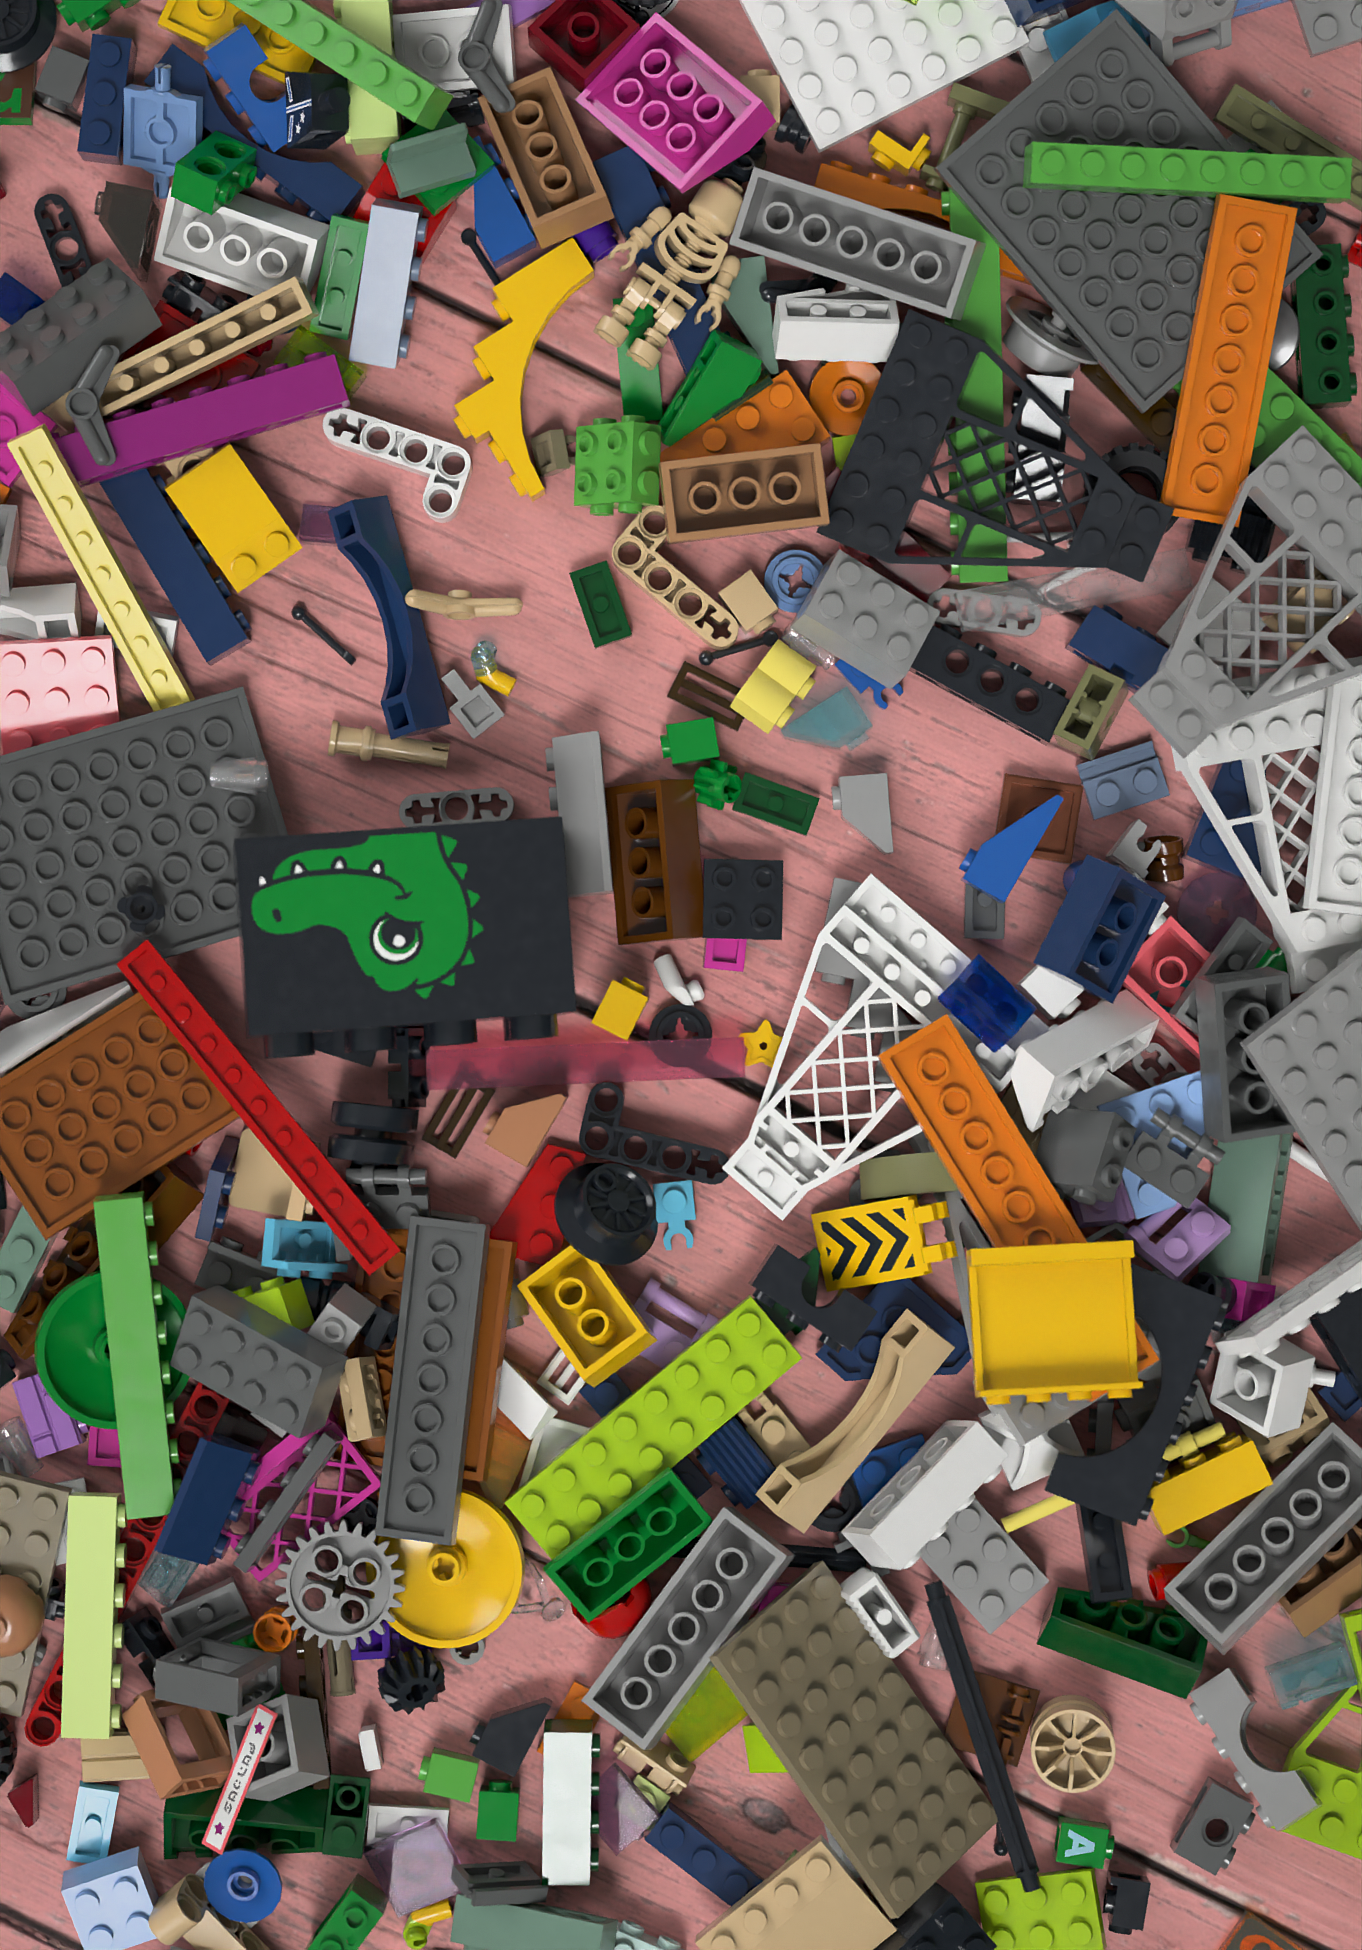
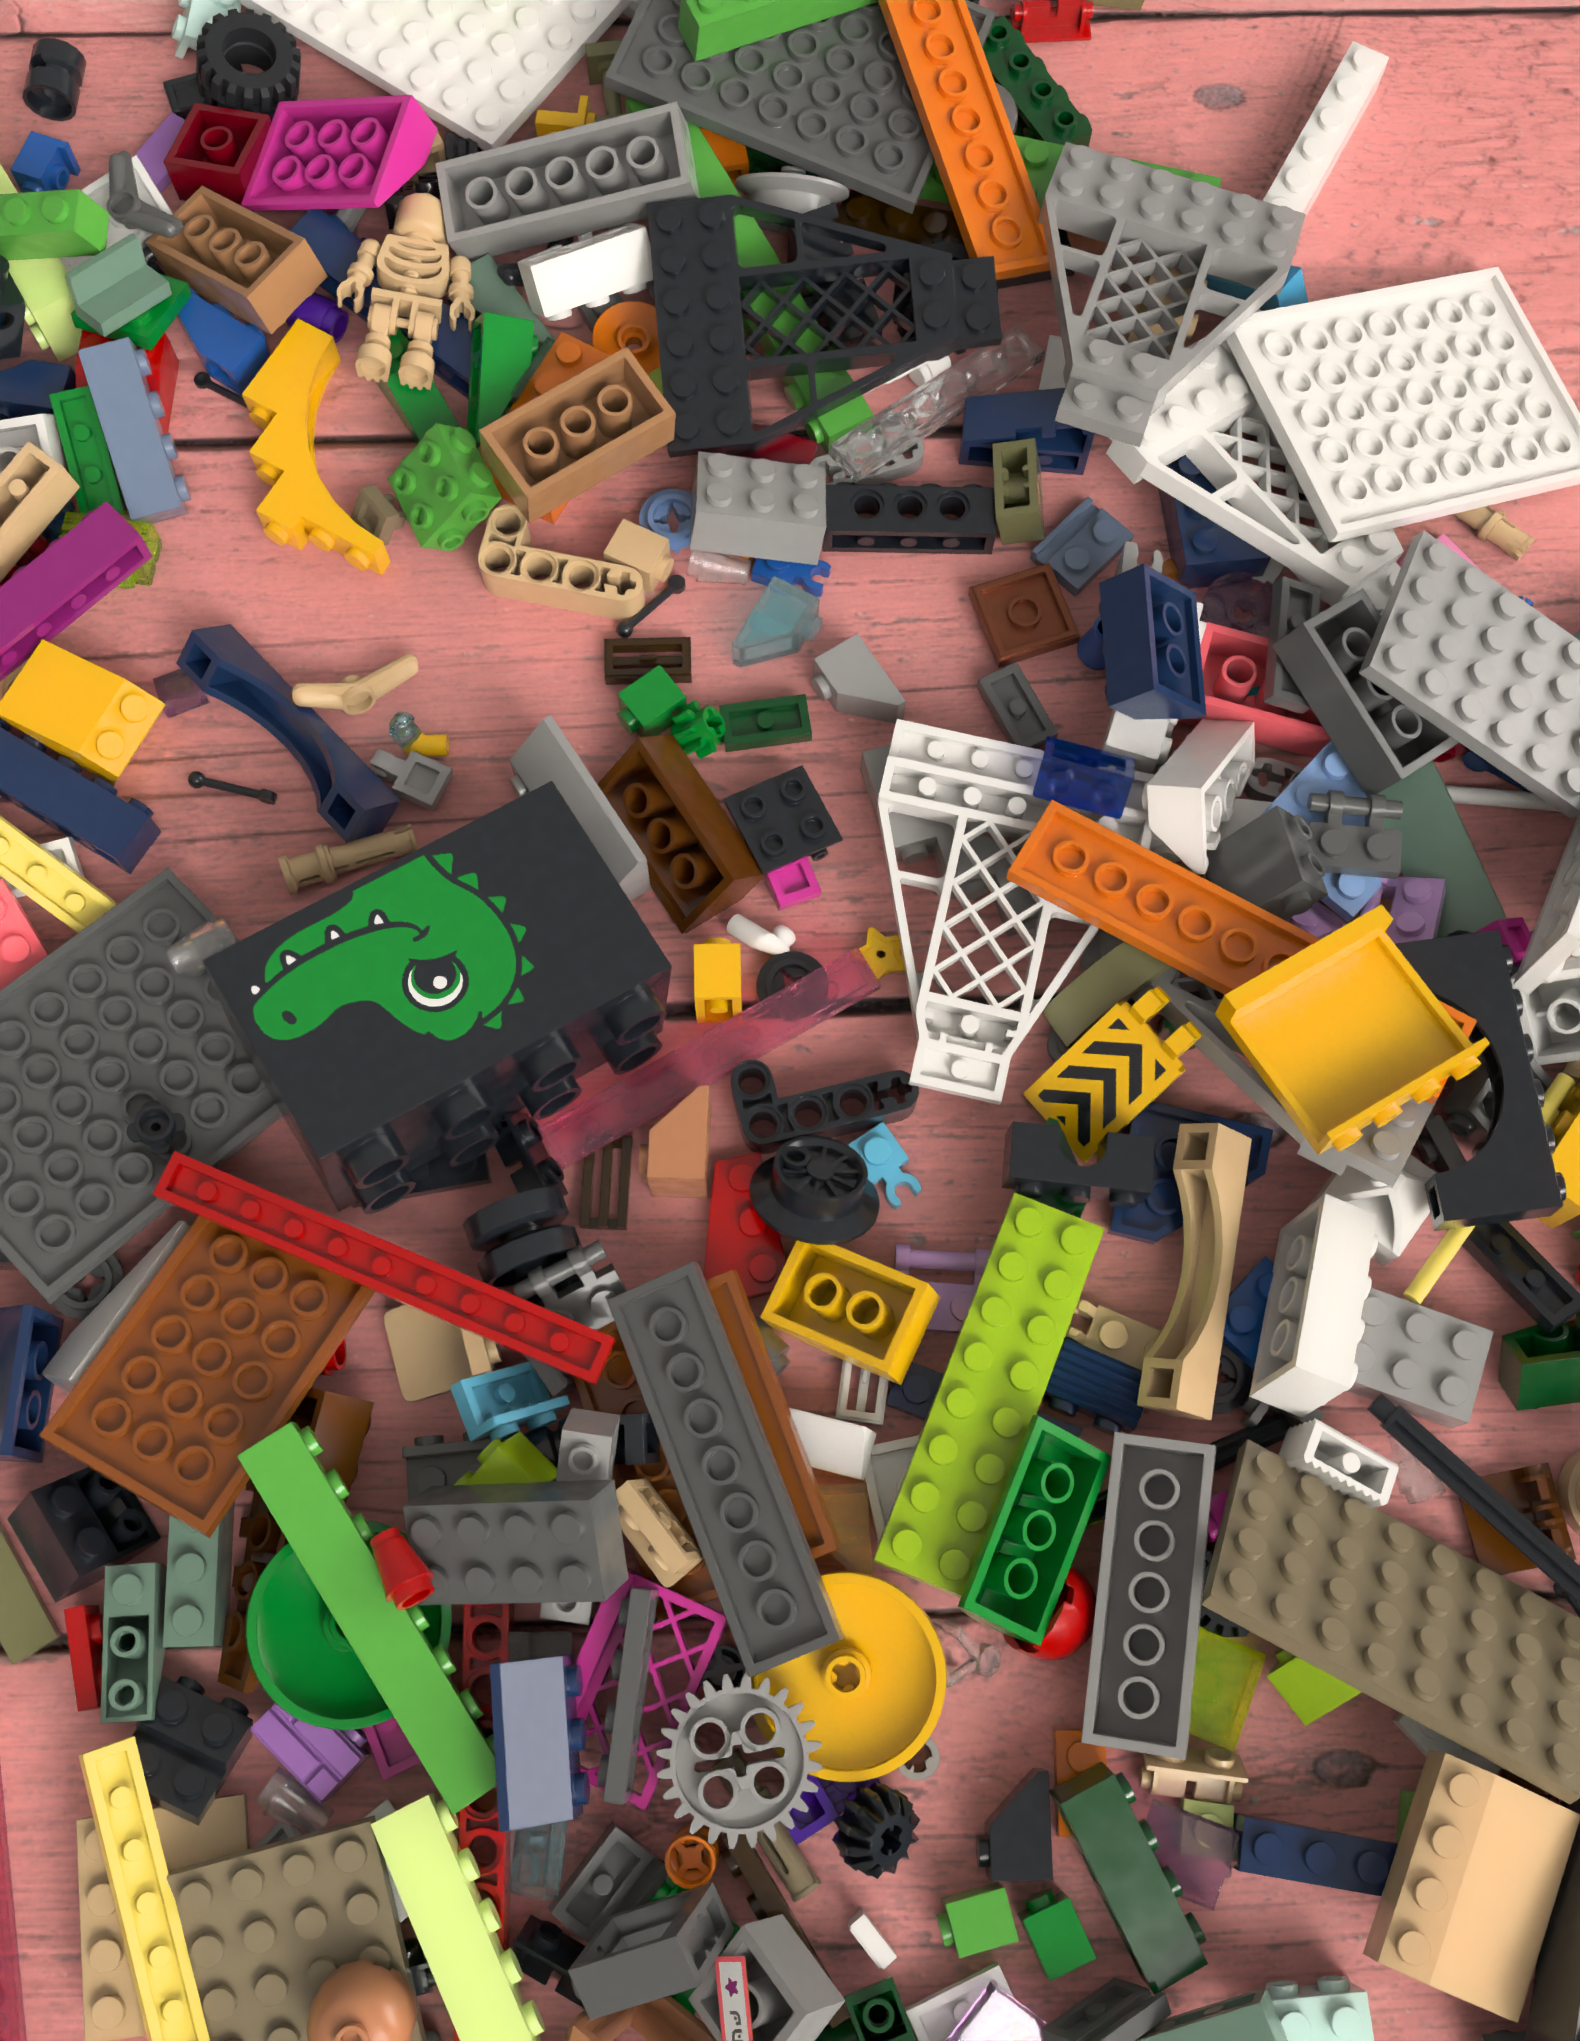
camera: 30 degrees left, 15 degrees down
(170, 1339) = (401, 1570): none -> red cone
(219, 1184) = (382, 1383): dark blue wing -> none
(395, 455) = (158, 582): white beam -> none
(600, 604) = (495, 627): dark green plate -> none
(774, 686) = (704, 615): light yellow brick -> none
(1005, 855) = (1015, 650): blue slope -> none
(1252, 535) = (1033, 298): black brick -> none

